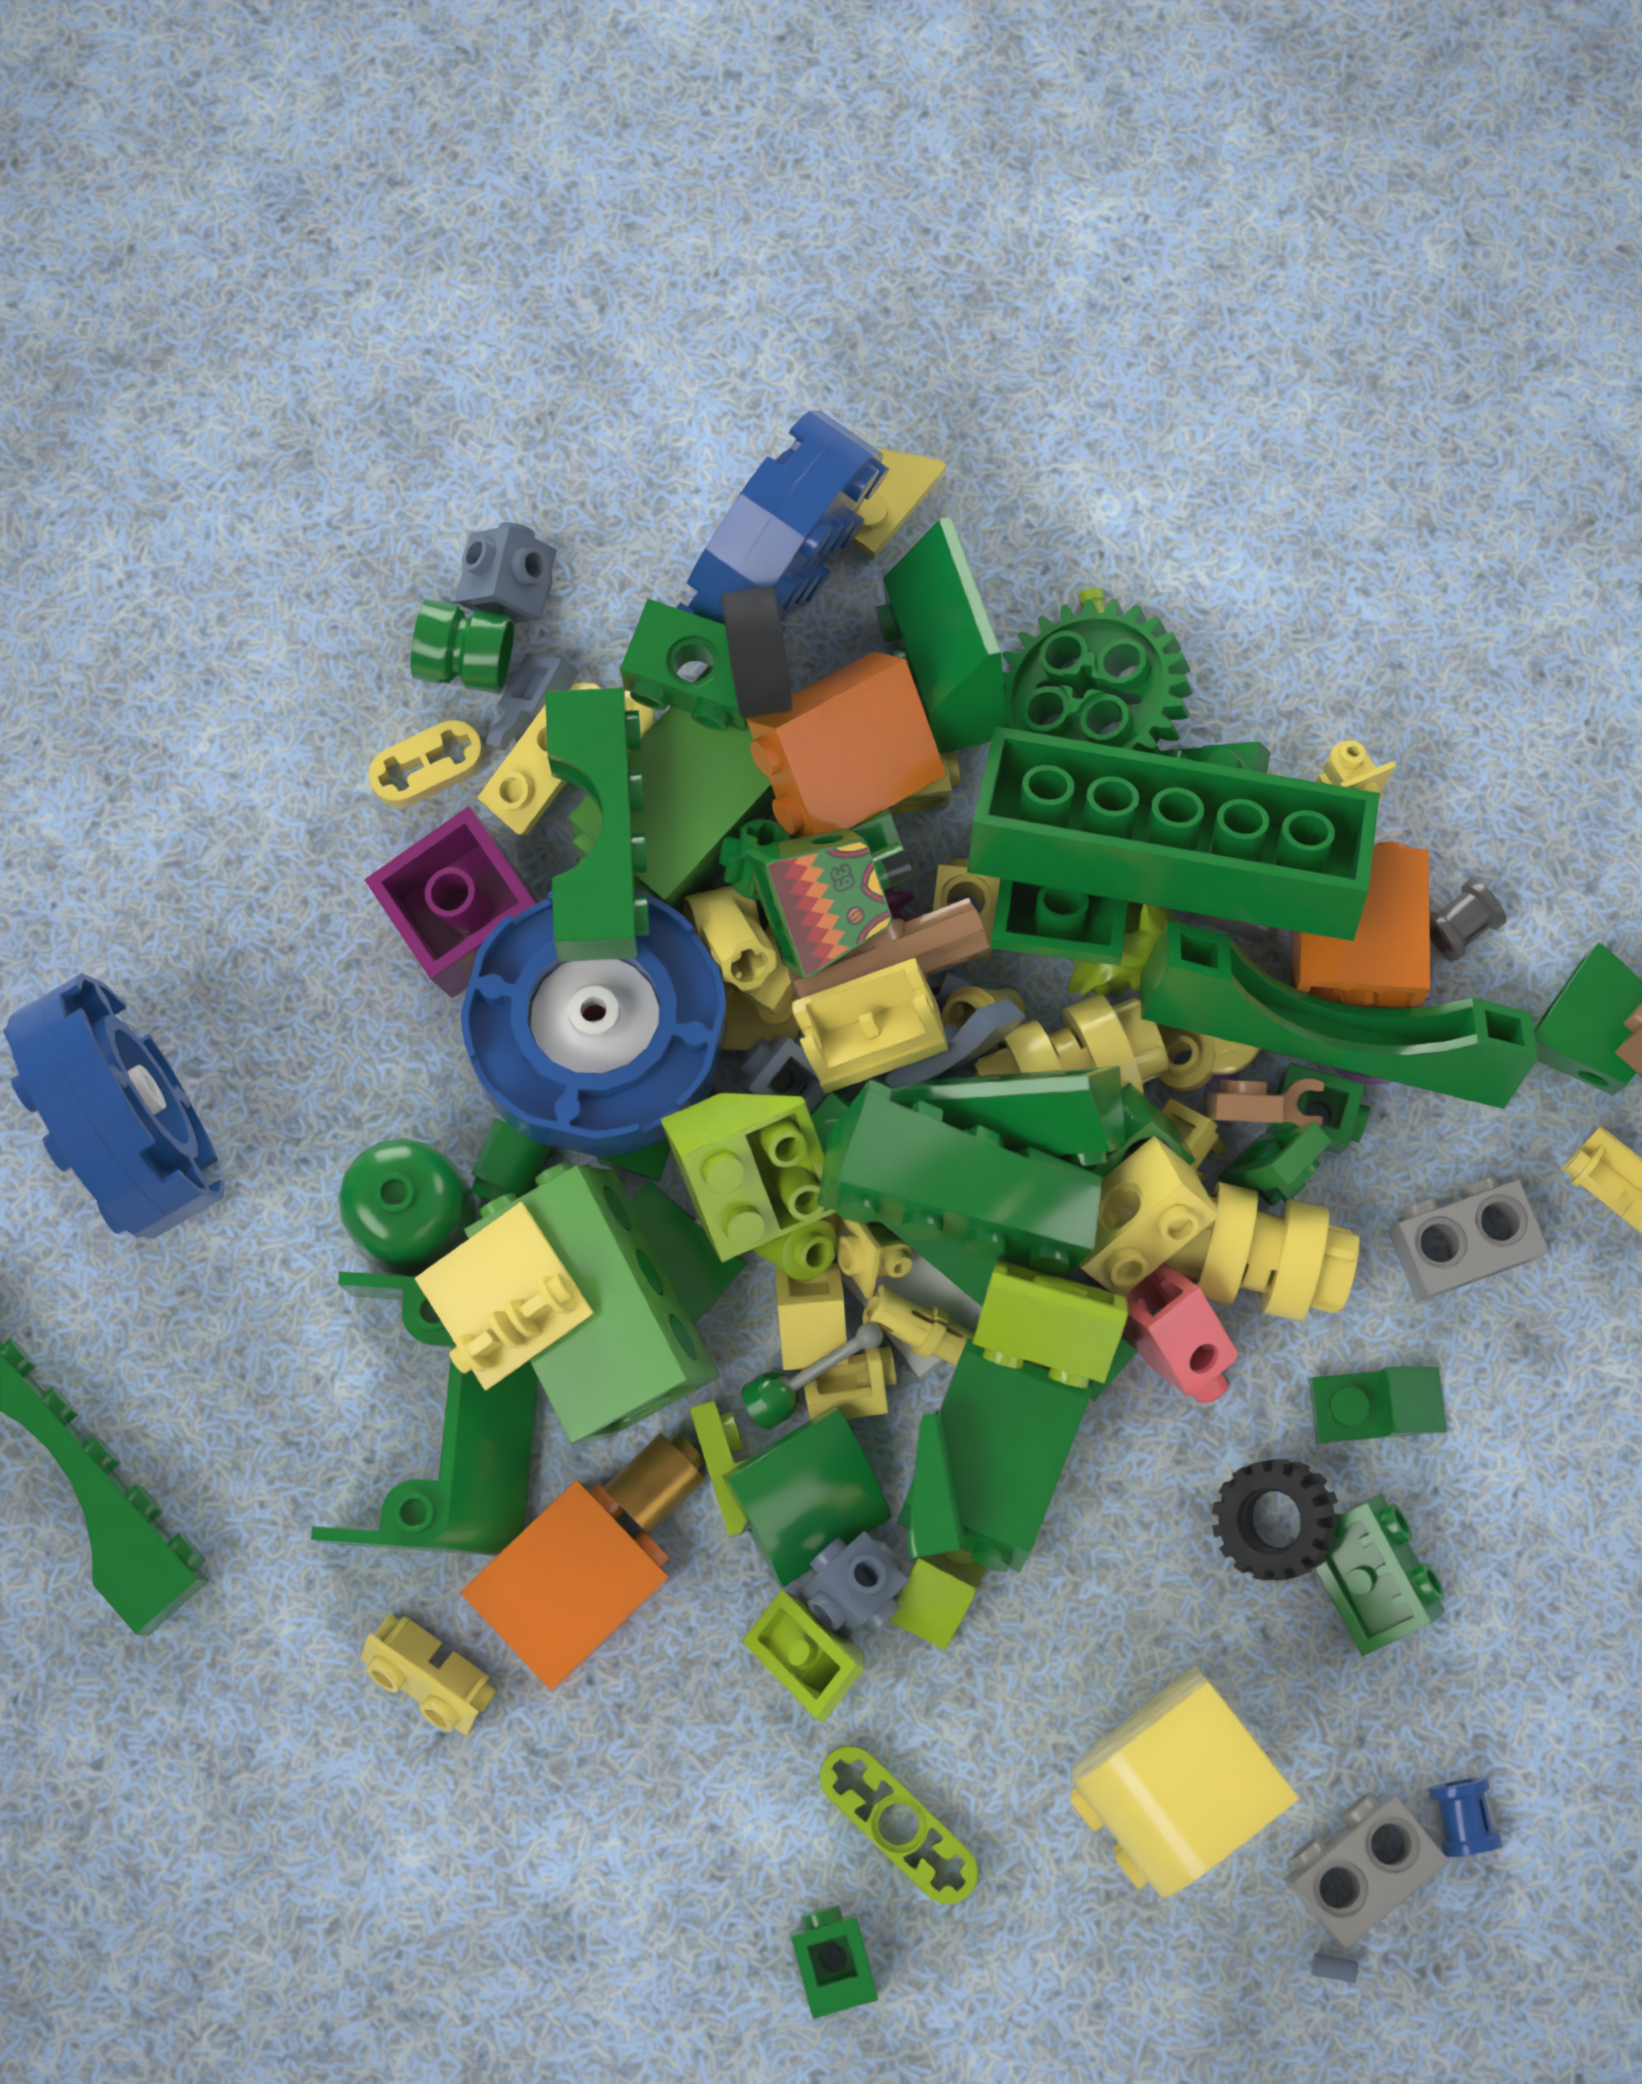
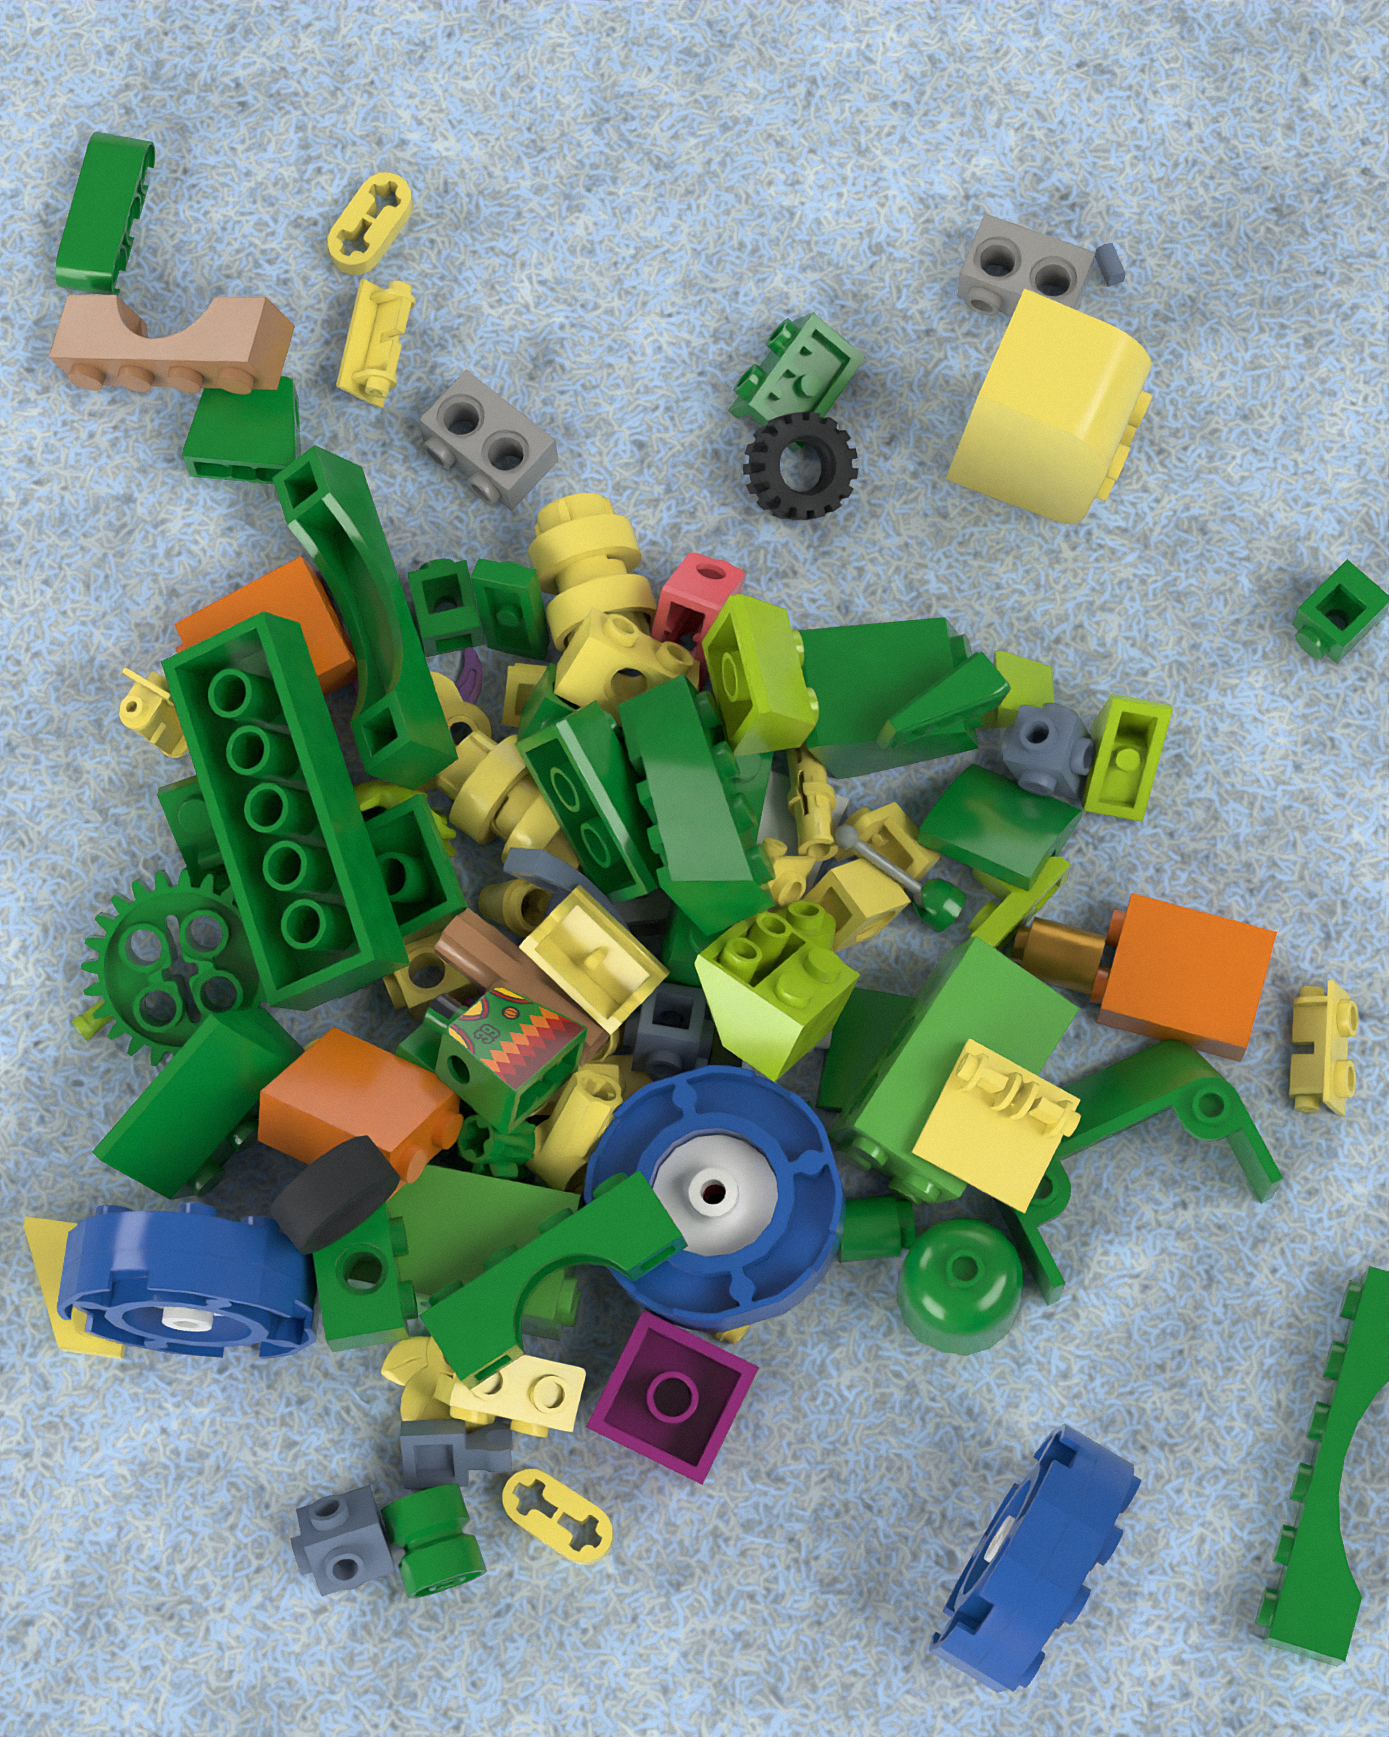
camera: 115 degrees left, 5 degrees down
(946, 1847) = (1231, 592): lime beam -> none
(1250, 1102) = (481, 646): medium nougat plate -> none
(1377, 1404) = (659, 445): green slope -> none
(1465, 919) = (211, 573): dark grey bush -> none
(1465, 1817) = (941, 226): blue bush -> none

